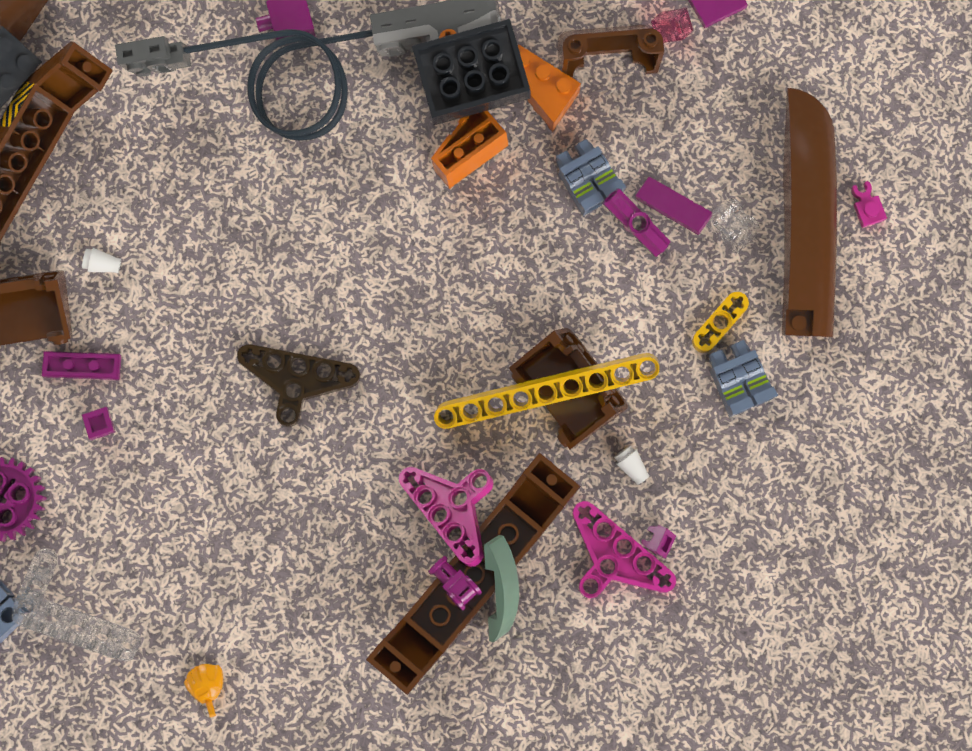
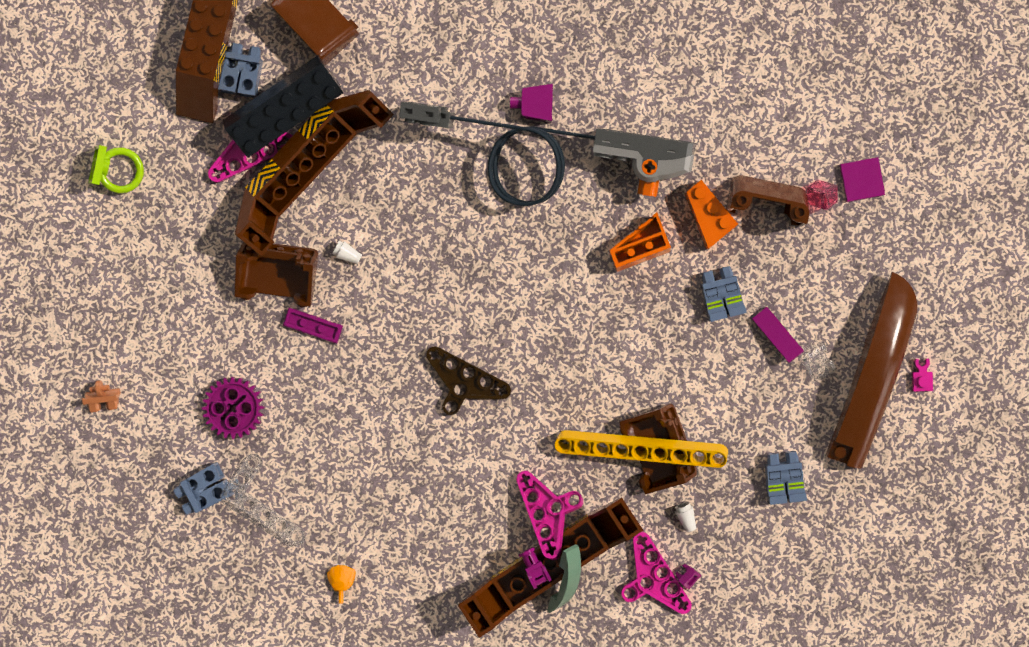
camera: 25 degrees right, 10 degrees up
(98, 423) = (315, 374): magenta tile -> none
(471, 72) = (659, 196): black slope -> none
(626, 211) = (741, 333): magenta piece -> none
(727, 303) = (774, 443): yellow beam -> none

